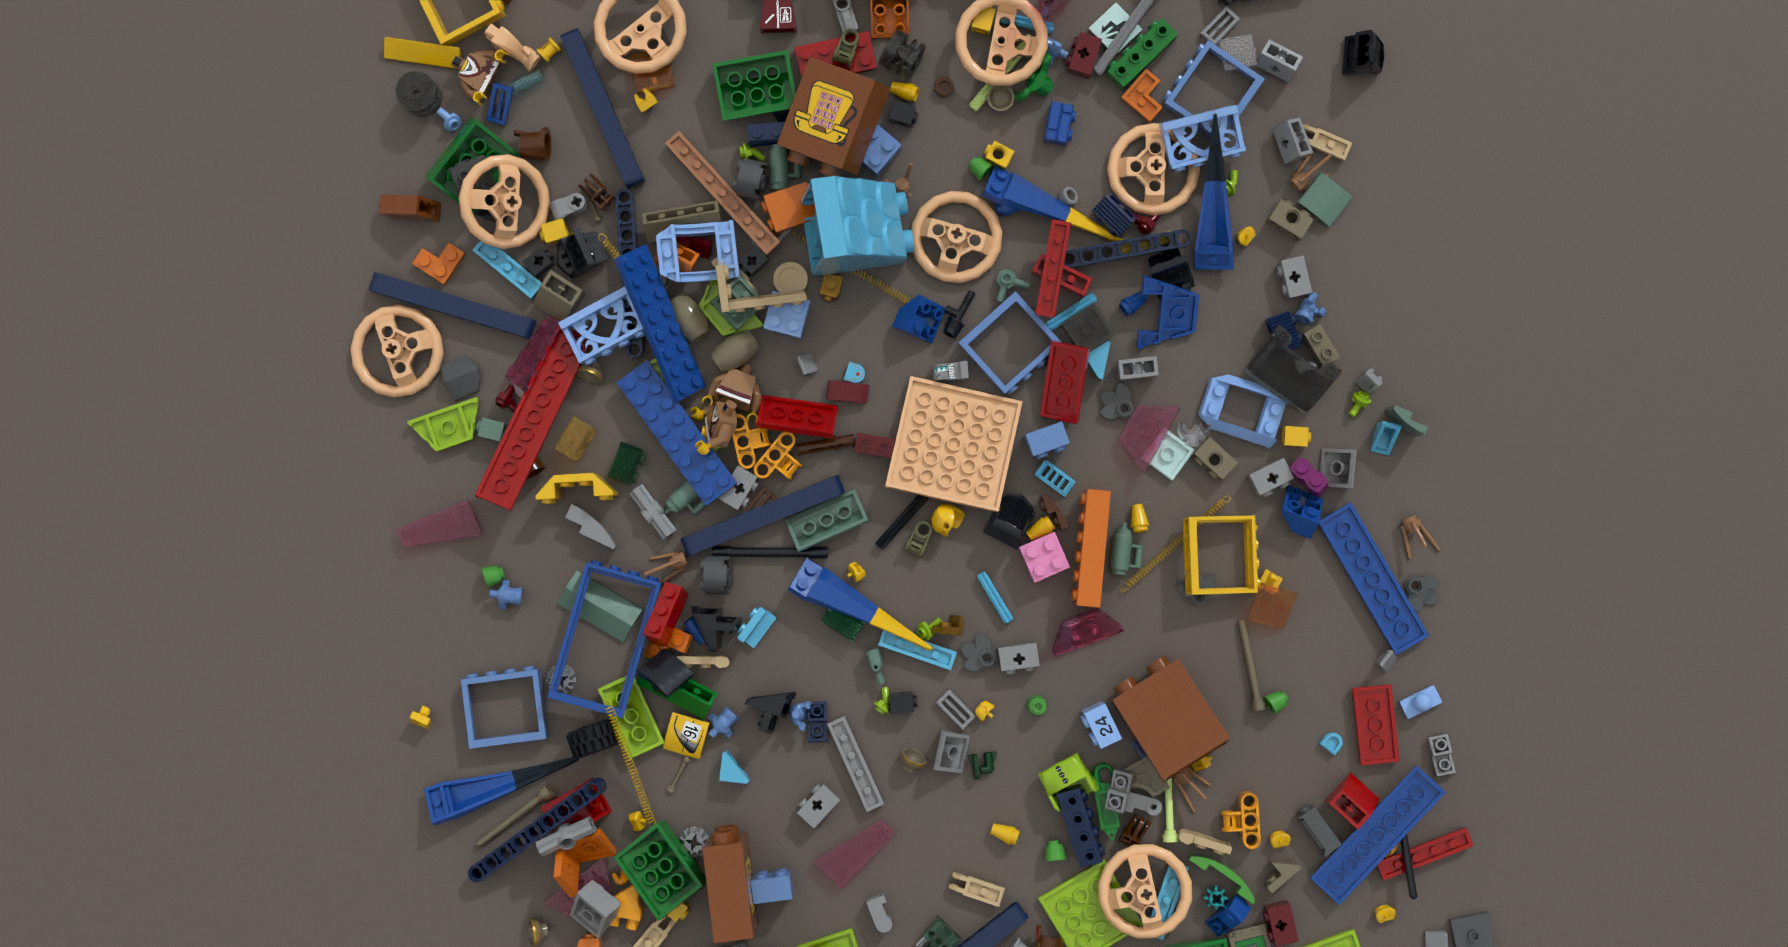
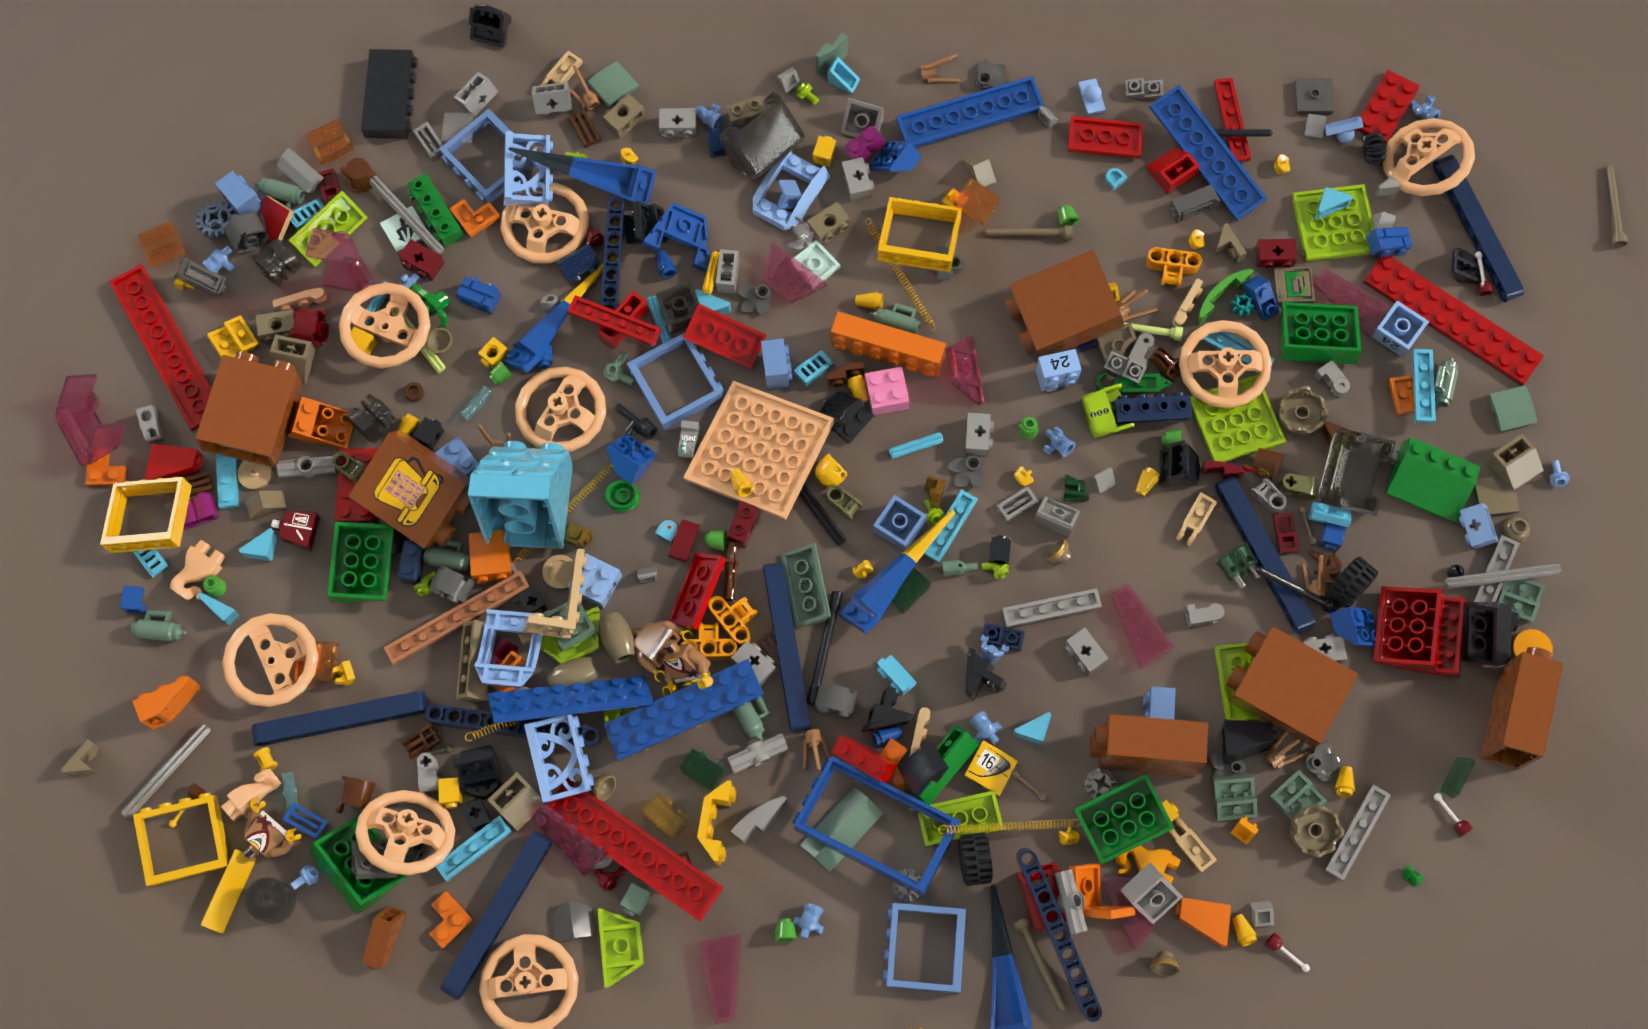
camera: 80 degrees left, 15 degrees down
(854, 423) = (717, 540): none -> bright green hat
(879, 320) = (622, 496): none -> green piece
(907, 599) = (899, 523): none -> medium blue brick
(911, 434) = (741, 483): none -> yellow cone
(944, 152) = (476, 403): none -> clear light blue pin
(997, 791) = (1104, 480): none -> light grey slope
(1026, 862) = (1178, 465): none -> black piece
(1028, 738) = (1058, 442): none -> medium blue piece
(1033, 910) = (1226, 469): none -> dark red slope
(1113, 353) = (711, 273): none -> yellow axle
(1236, 413) = (790, 194): none -> medium blue panel
(1280, 172) = (578, 116): none -> reddish brown tile
(1310, 601) = (980, 169): none -> slope

